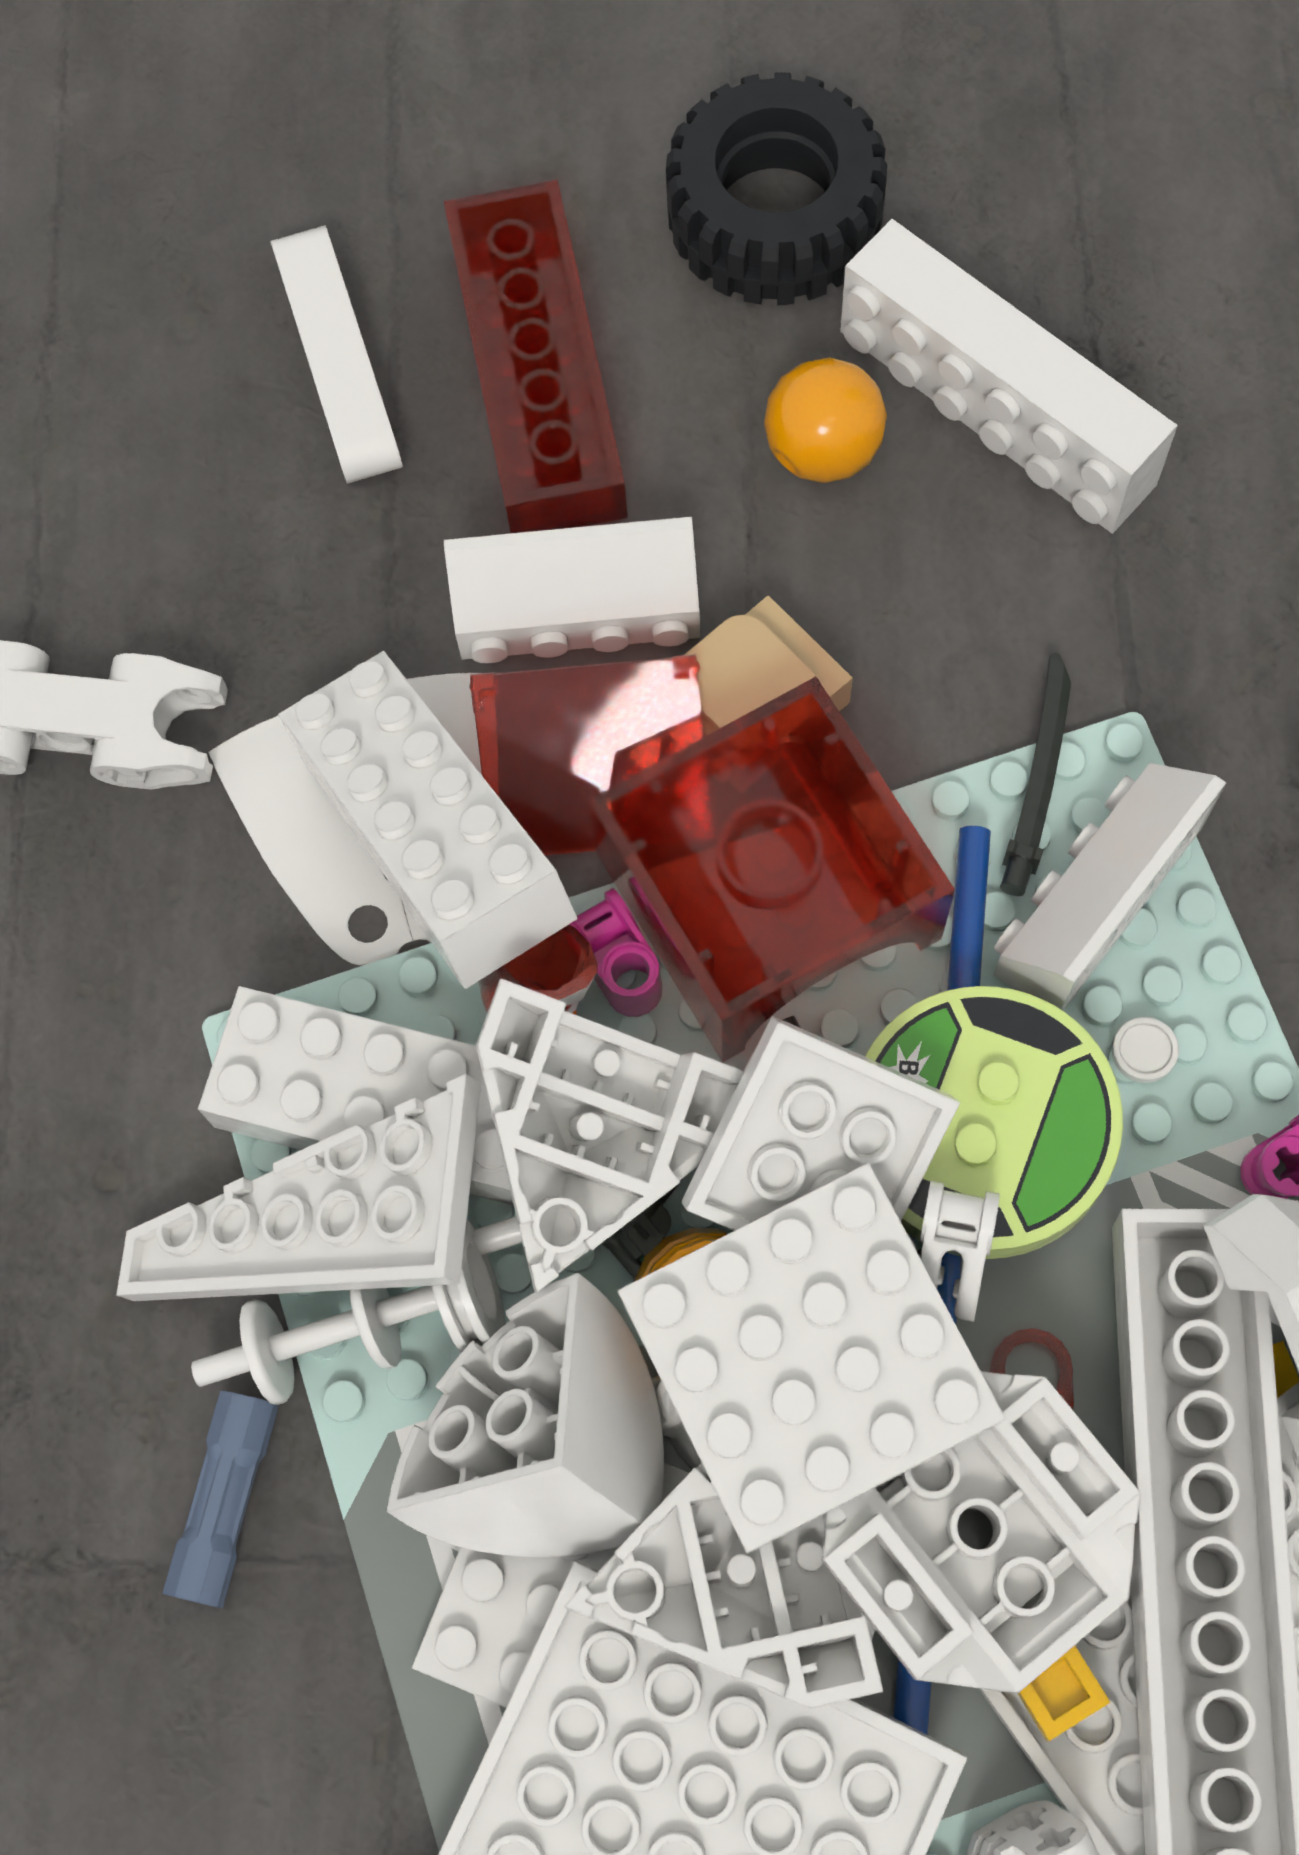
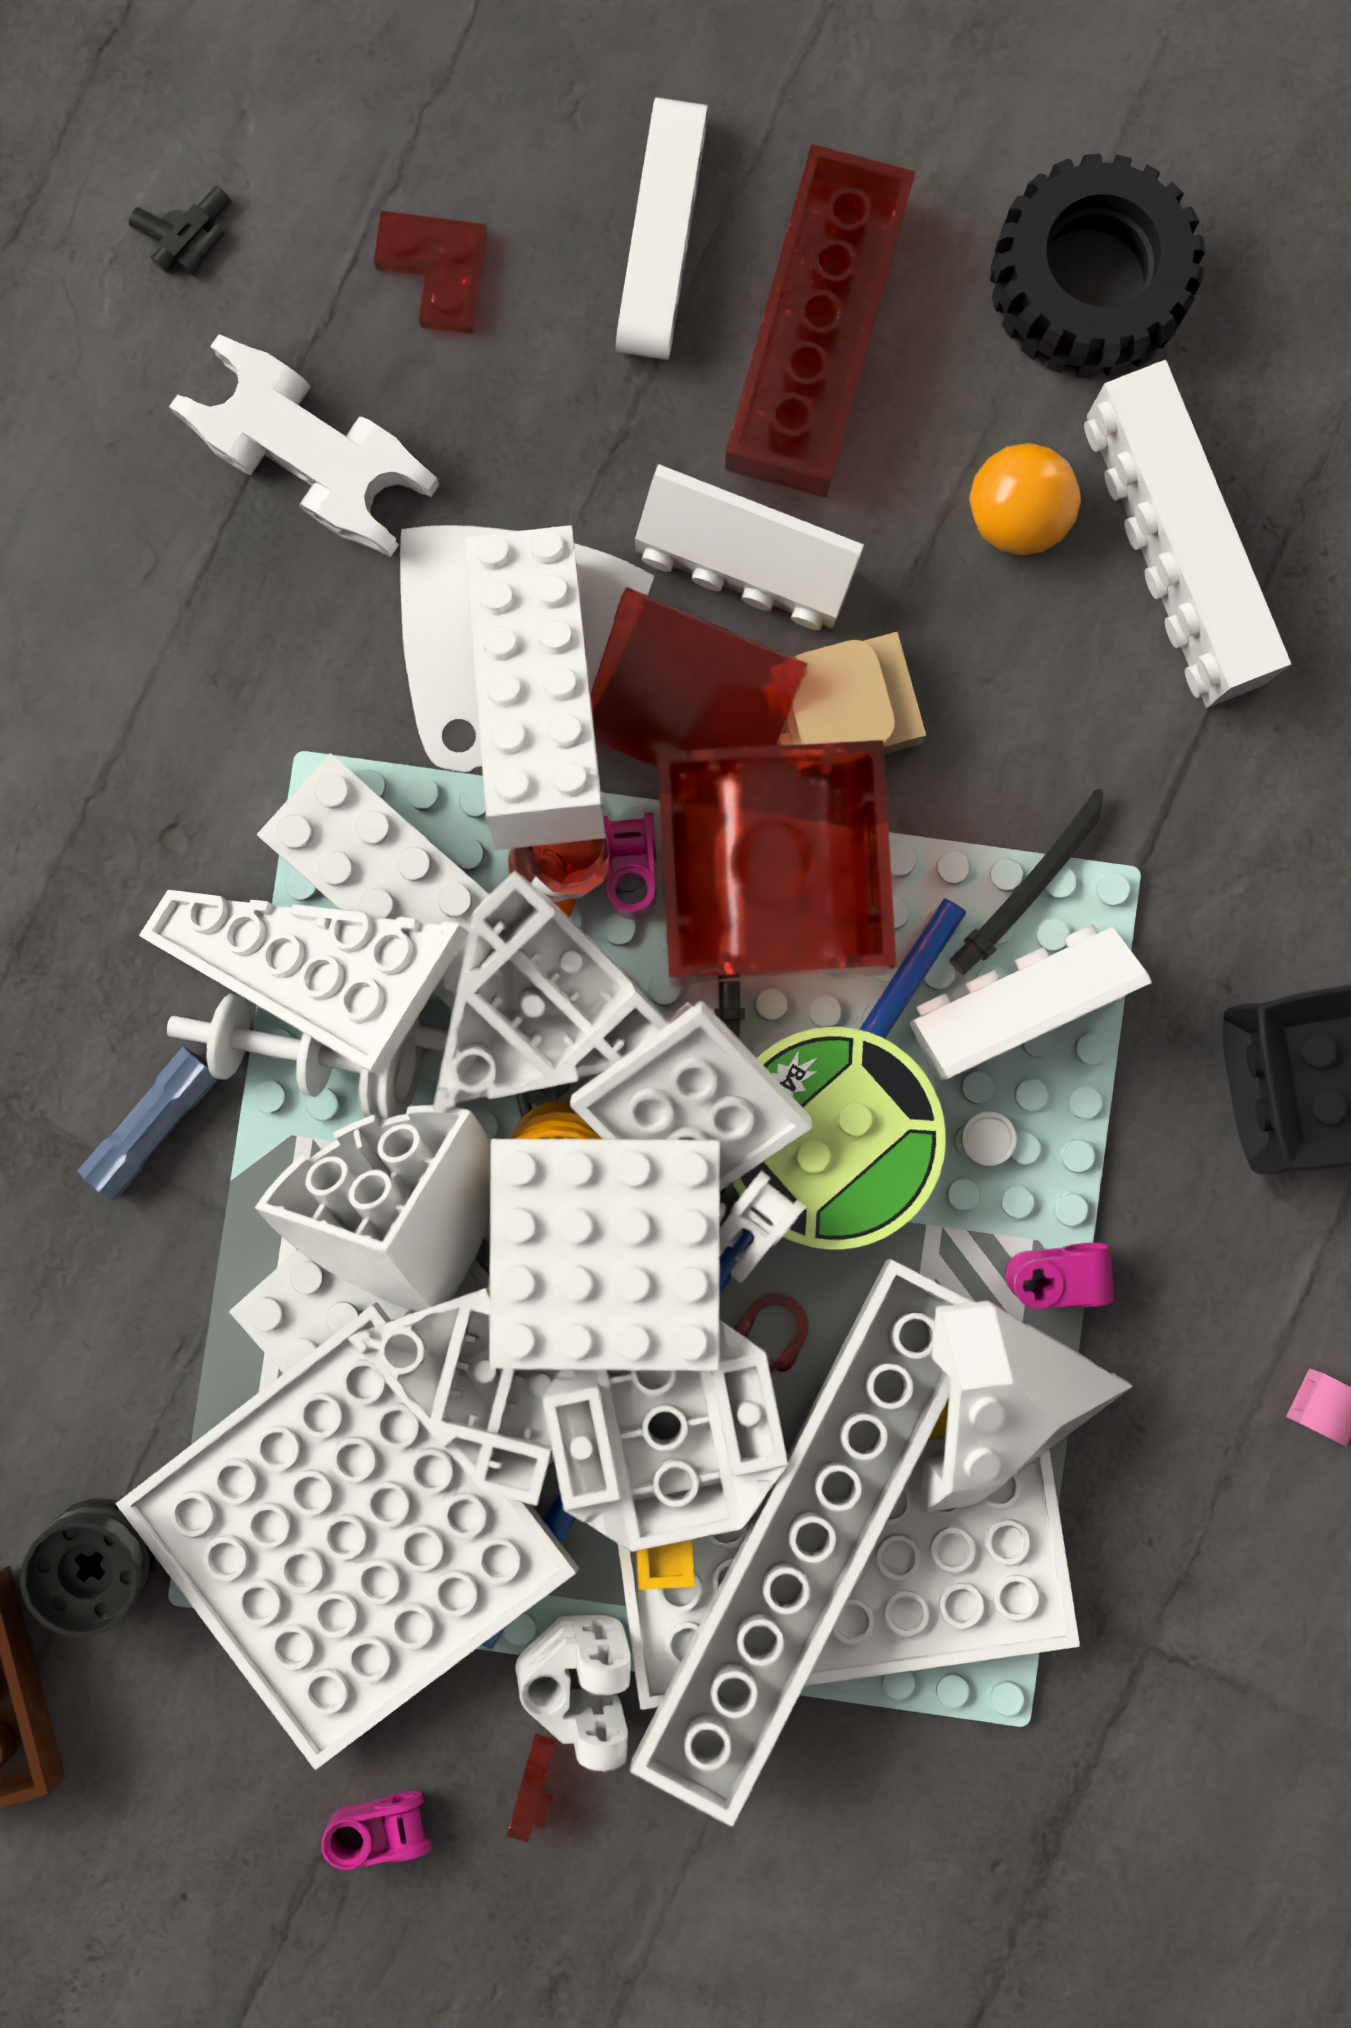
camera: 25 degrees right, 15 degrees up
(126, 476) = (446, 254): none -> clear red plate

